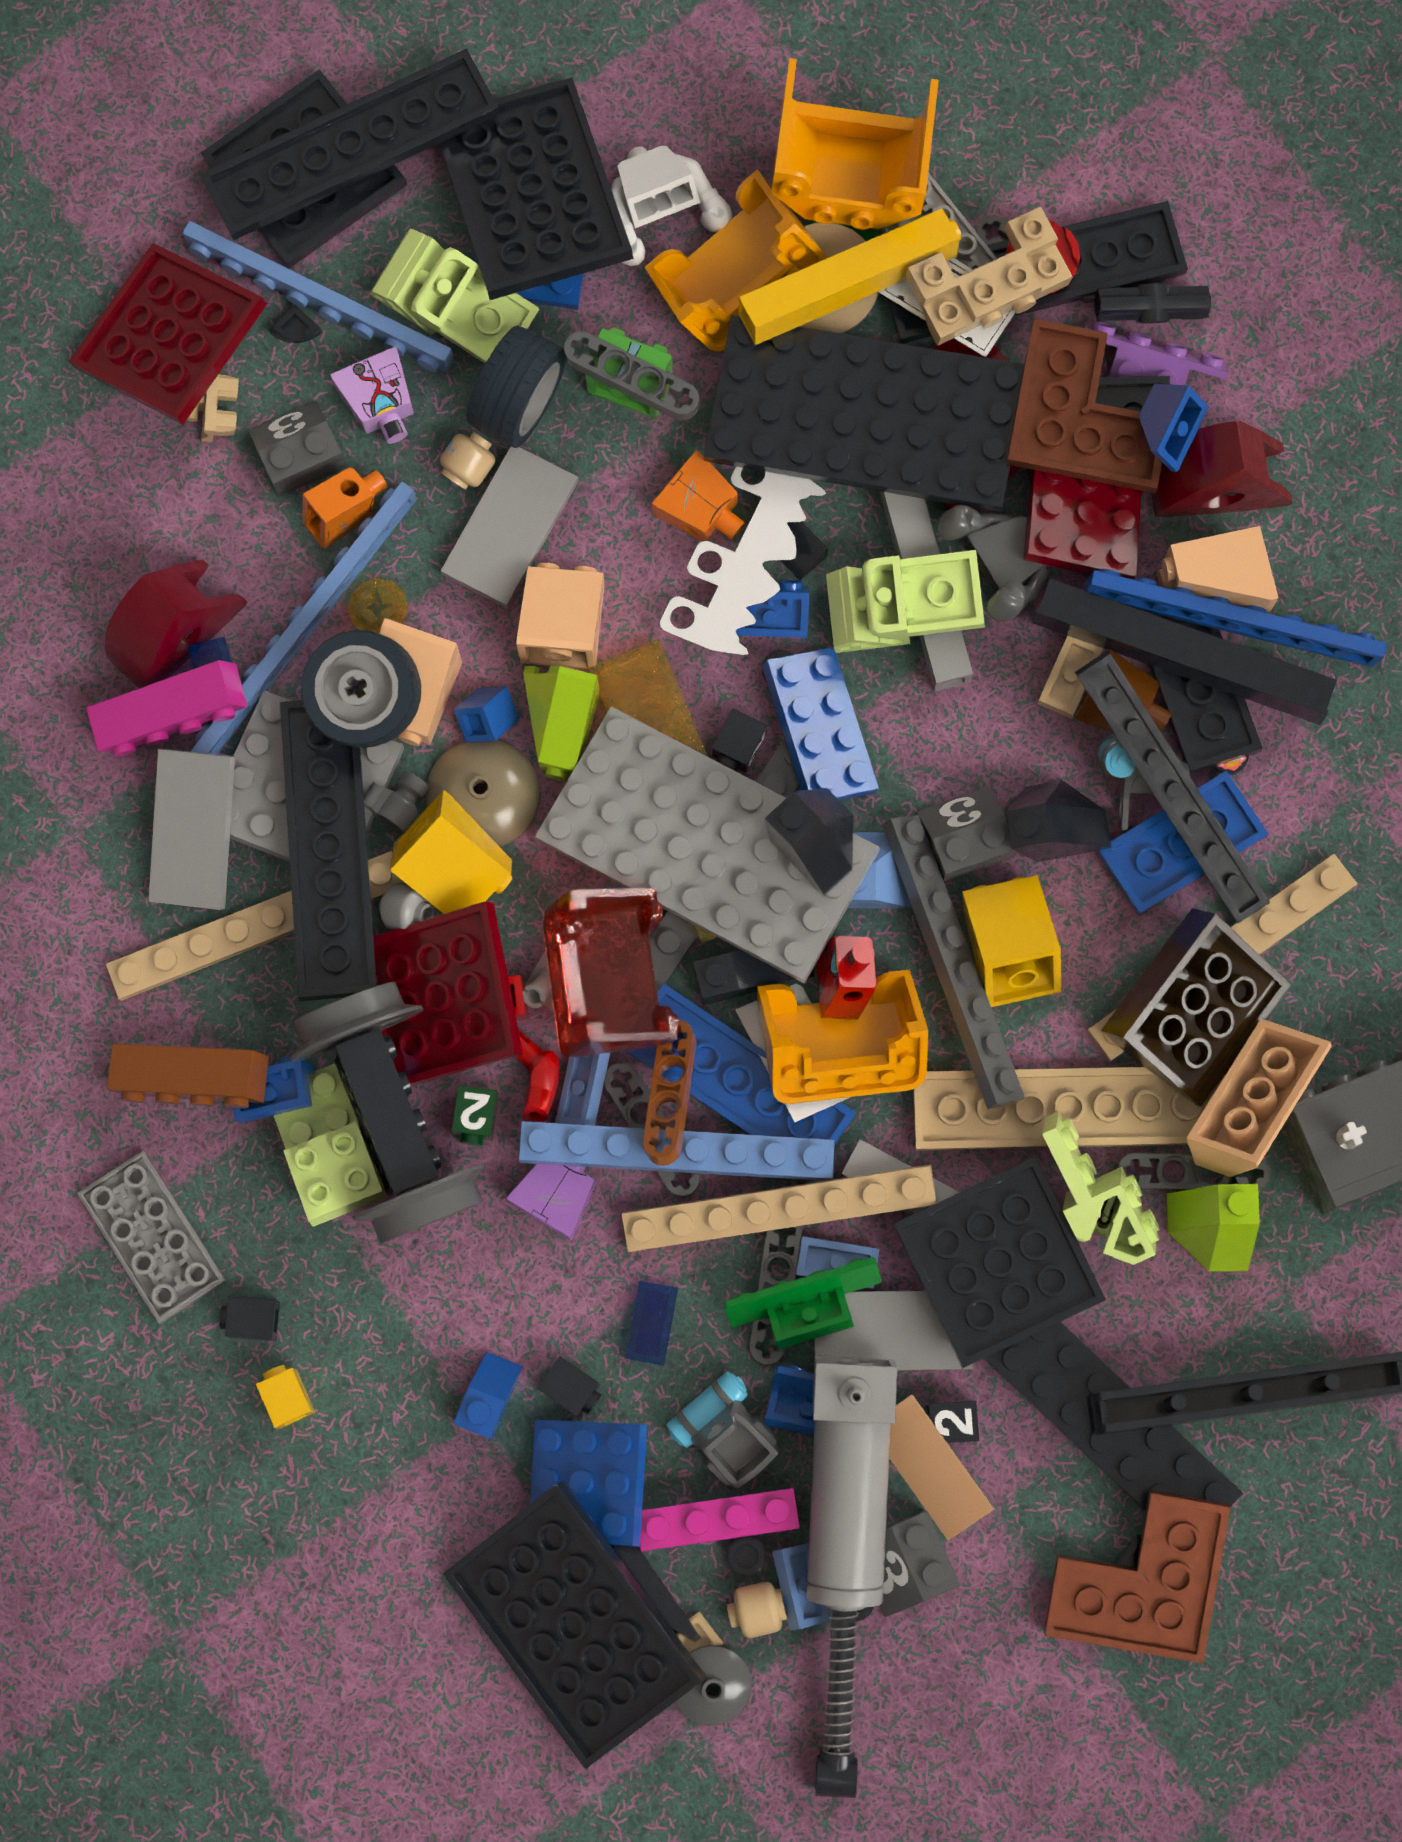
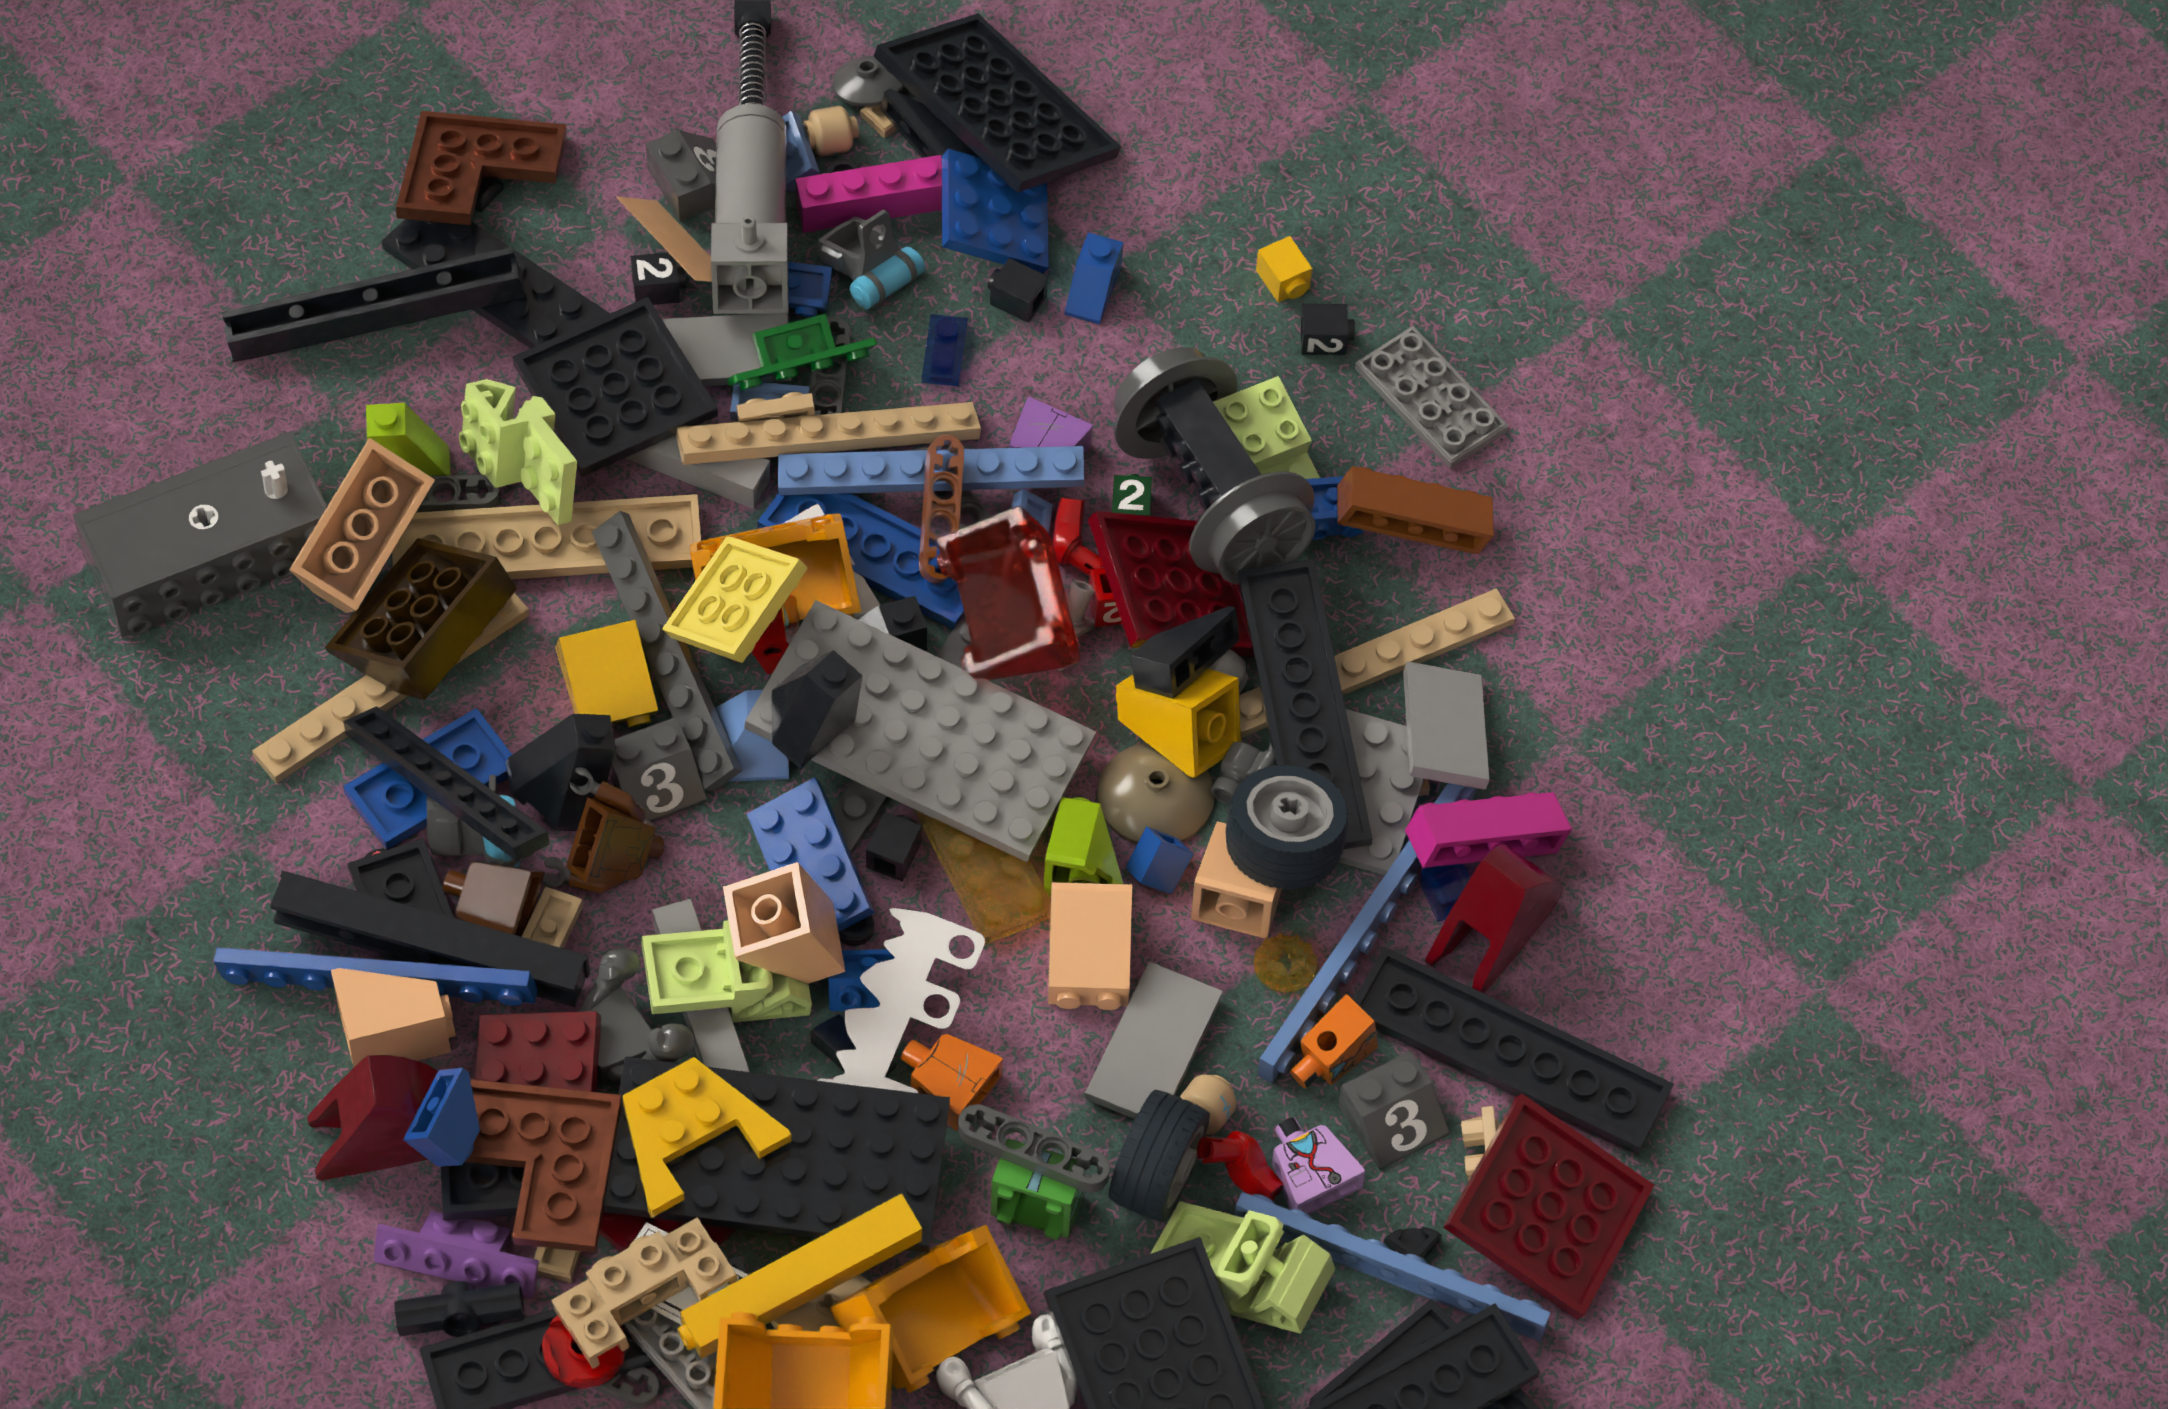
camera: 170 degrees right, 20 degrees down
(180, 503) = (1513, 1050): none -> black plate
(435, 398) = (1243, 1162): none -> red arm
(447, 887) = (1181, 654): none -> black slope
(848, 1229) = (789, 405): none -> tan plate
(849, 613) = (784, 925): none -> light nougat slope
(885, 962) = (735, 599): none -> light yellow plate
(951, 437) = (684, 1112): none -> yellow wing
(1014, 745) = (609, 841): none -> reddish brown torso

